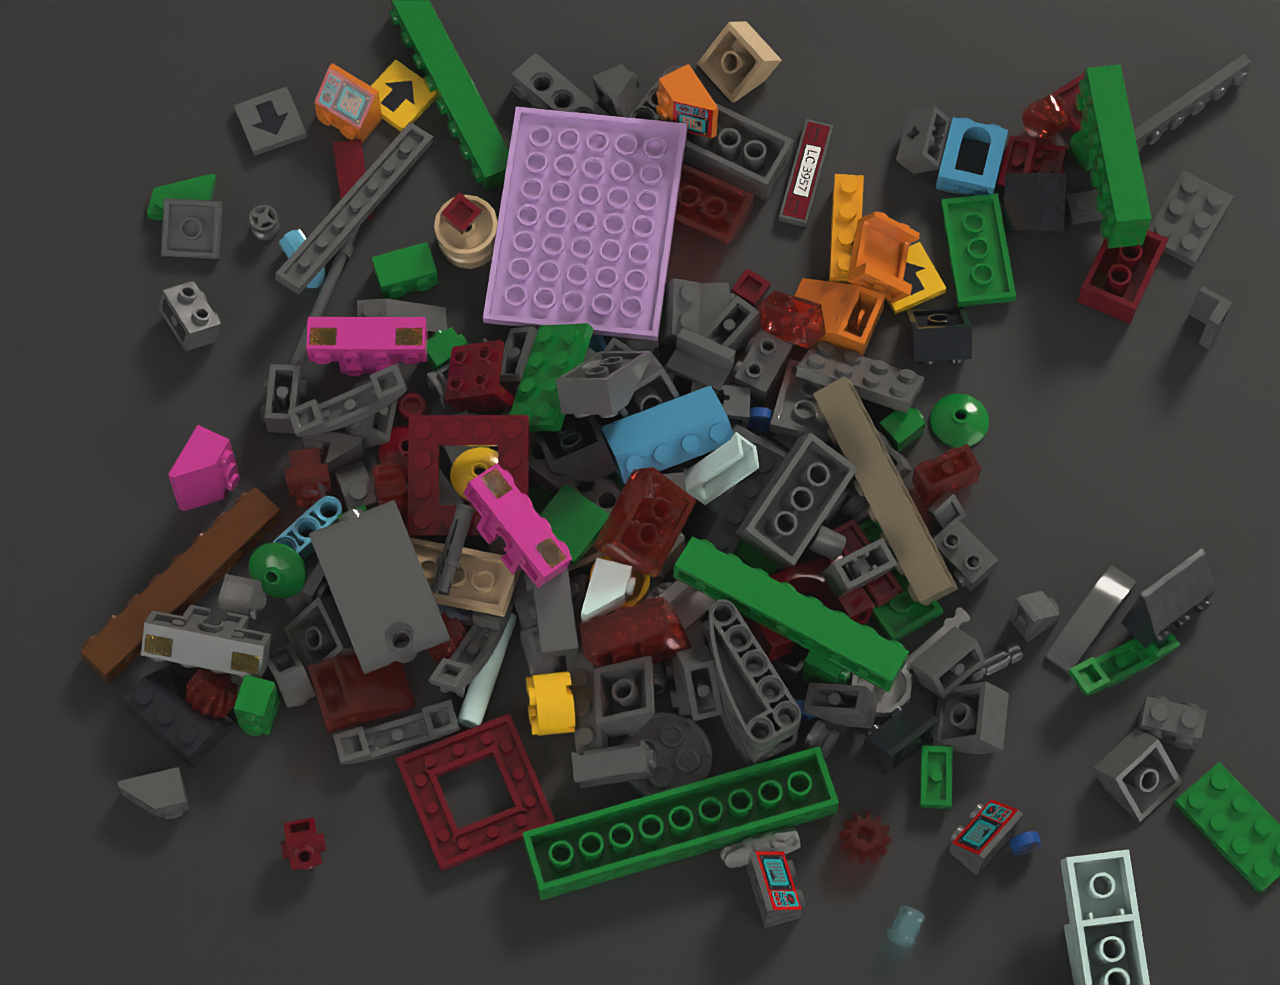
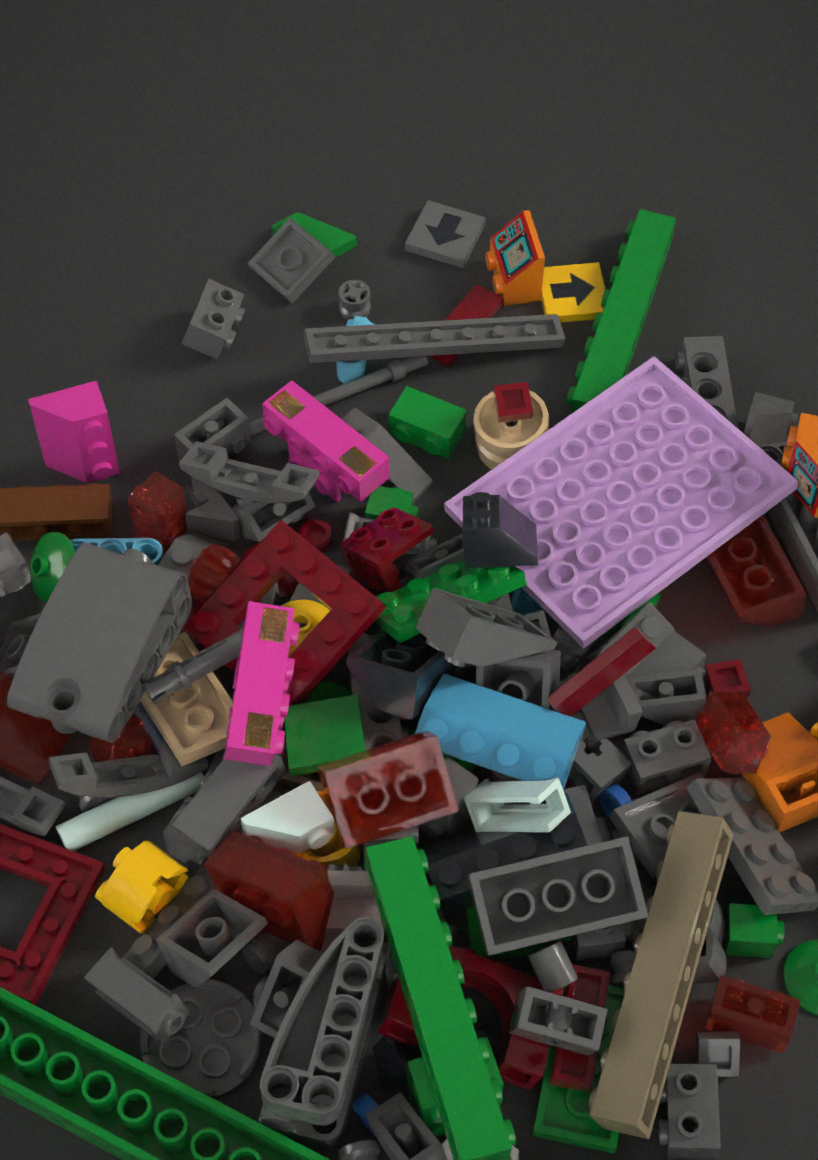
camera: 45 degrees right, 10 degrees down
(546, 313) = (496, 533): none -> black slope
(694, 348) = (601, 672): none -> dark red tile

